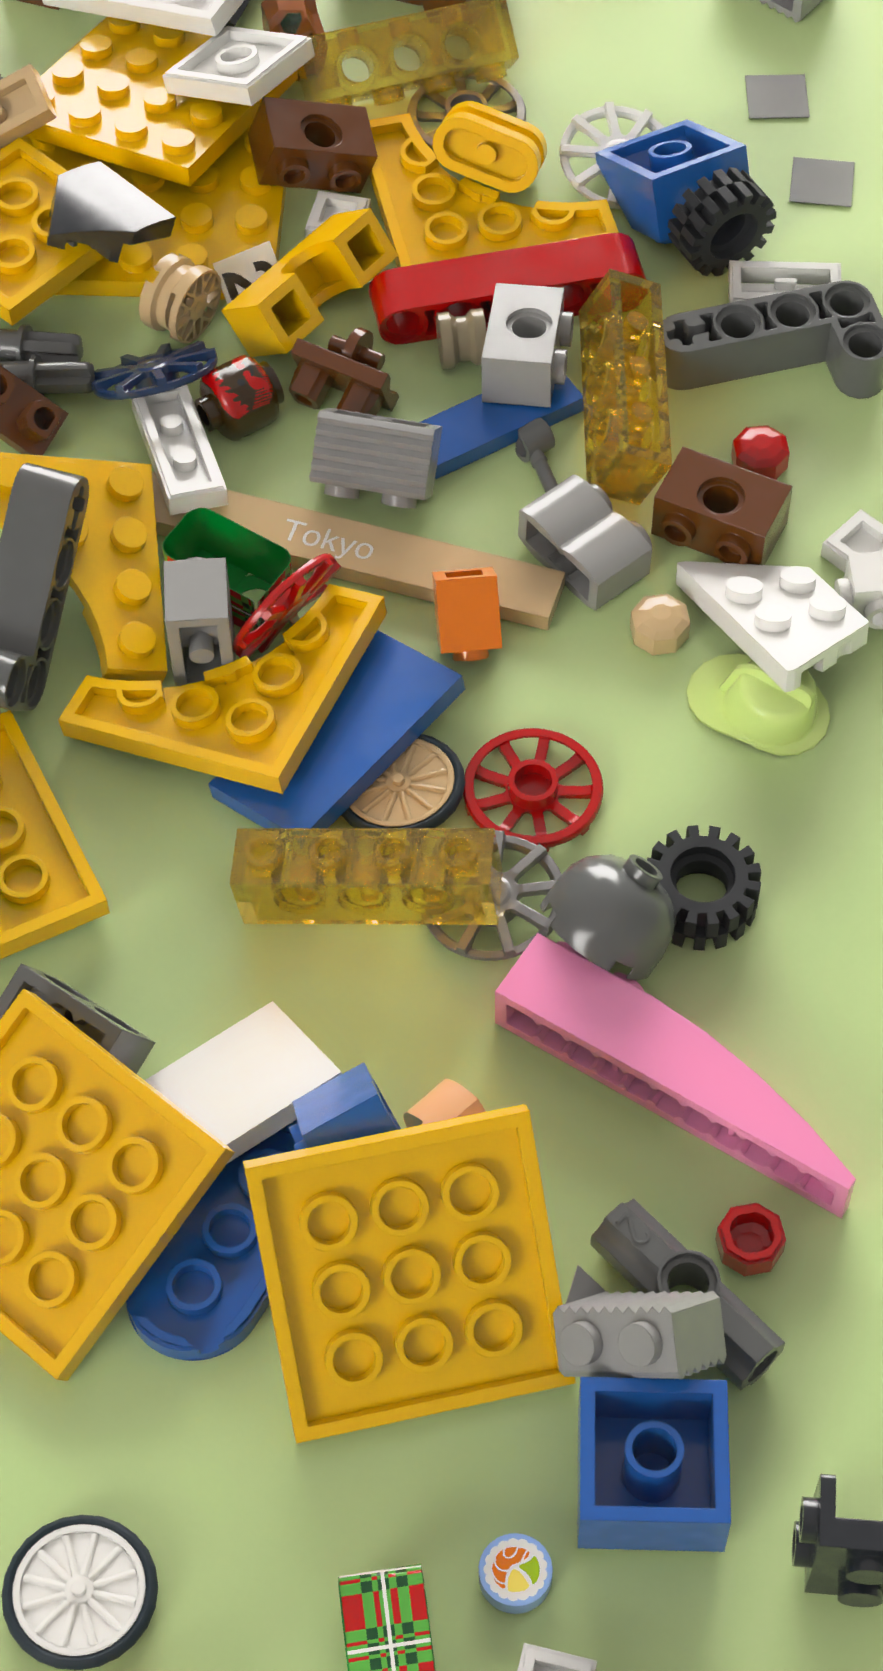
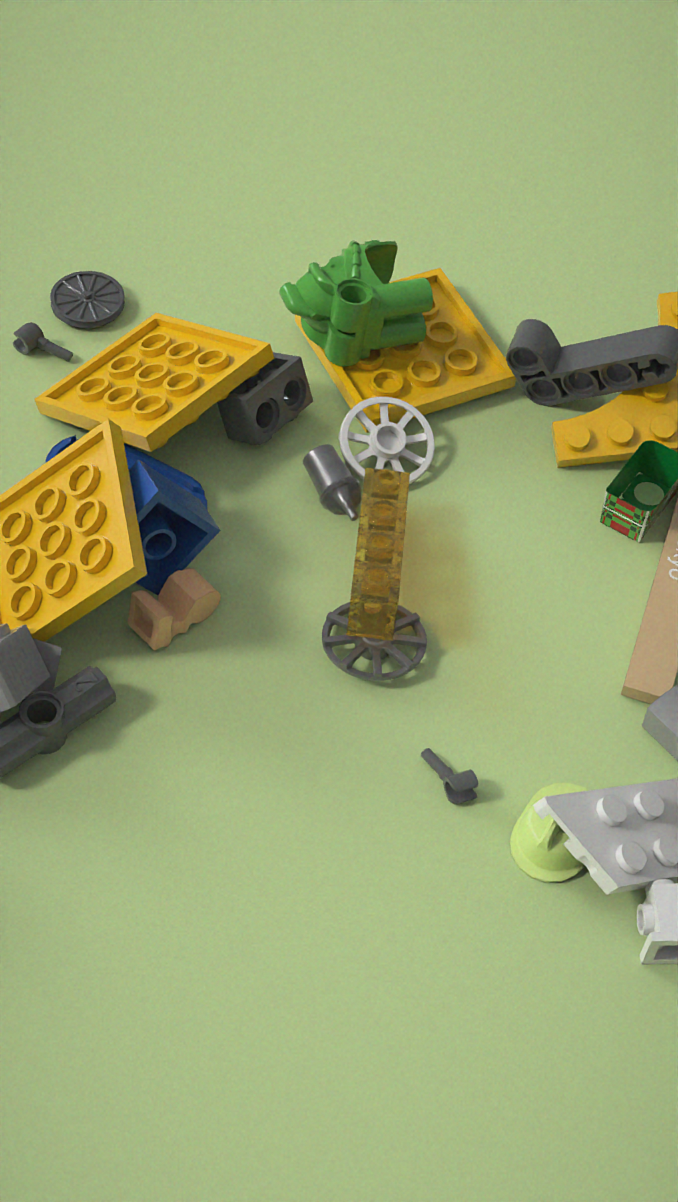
camera: 85 degrees right, 5 degrees down
(143, 877) = (387, 439): none -> white wheel
(198, 617) = (585, 461): light grey brick -> none
(219, 946) = (336, 486): none -> piece
(245, 716) = (523, 499): yellow plate -> none
(246, 1078) = (223, 479): white tile -> none
(284, 604) = (605, 507): red wheel -> none
(374, 720) = (508, 553): blue tile -> none
(414, 791) = (469, 590): tan wheel -> none
(467, 612) = (616, 623): orange brick -> none
(534, 787) = (471, 673): red wheel -> none
(613, 912) = (335, 686): dark grey cylinder -> none
(660, 624) = (627, 762): tan tile -> none
(666, 1065) = (221, 728): bright pink slope -> none
(715, 805) = (456, 786): none -> dark grey hand
(718, 859) = (377, 741): black tyre -> none
(750, 1239) = (82, 770): red tile -> none

